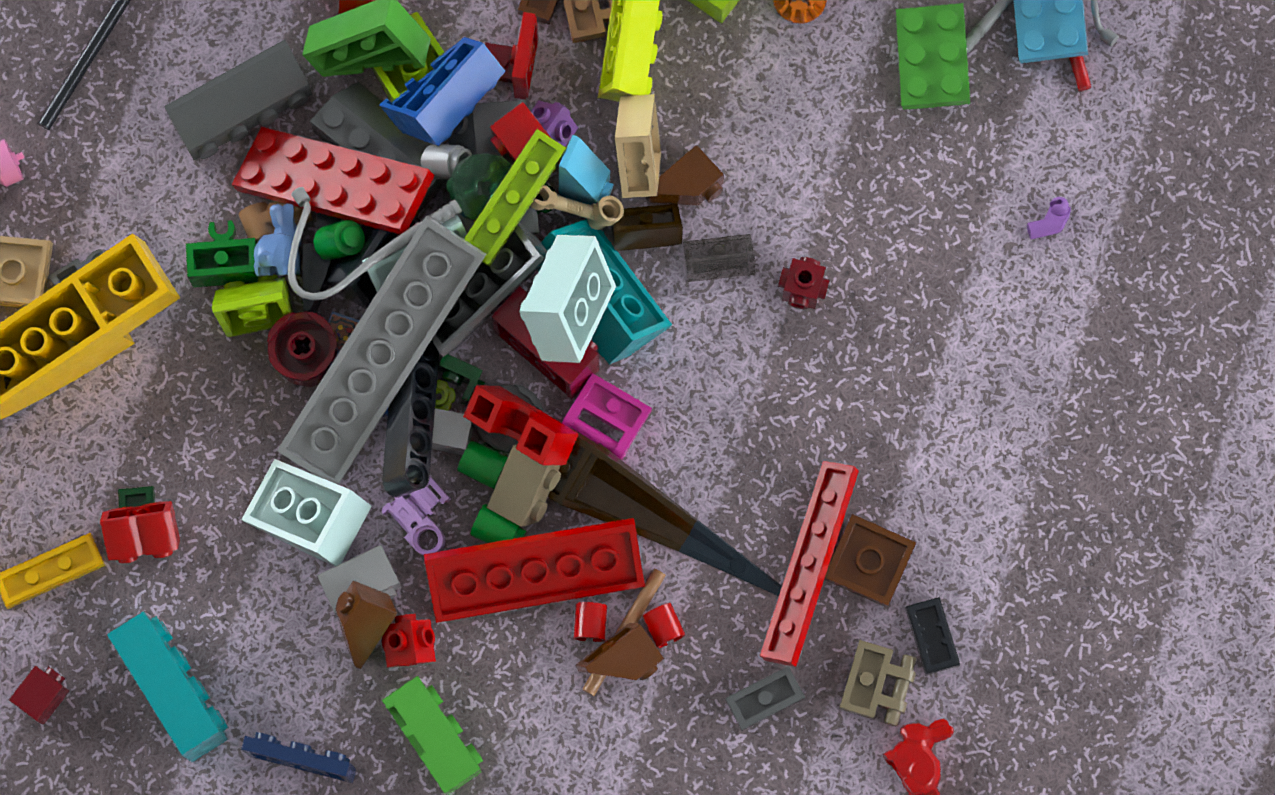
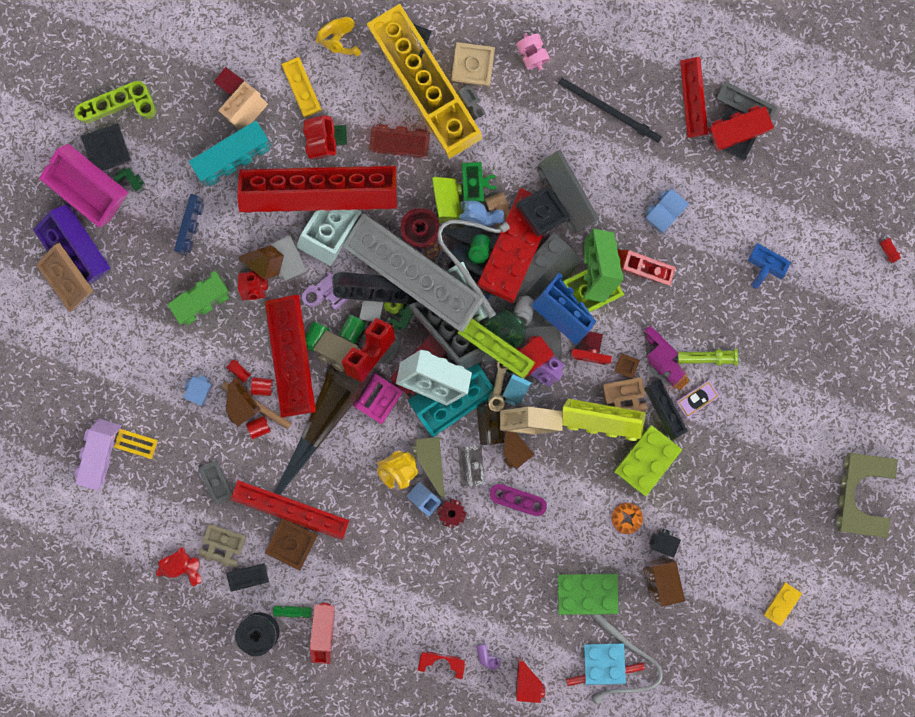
camera: 90 degrees right, 10 degrees up
(81, 666) = (243, 106): none -> light nougat bracket
(148, 392) = (399, 141): none -> clear red brick
(233, 528) = (317, 189): none -> red brick
(273, 138) = (542, 211): none -> black plate
(562, 665) = (239, 371): none -> red pin
(598, 735) = (198, 389): none -> medium blue brick
(709, 323) = (429, 456): none -> olive slope
(723, 369) = (398, 466): none -> yellow helmet
(778, 161) = (527, 500): none -> magenta plate
(780, 330) = (424, 499): none -> medium blue brick
(989, 556) = (292, 611): none -> green axle
(1026, 498) = (322, 633): none -> slope
(1034, 606) = (257, 634): none -> black piece
(1059, 311) = (429, 658): none -> red piece
(1092, 145) = (528, 685): none -> red slope

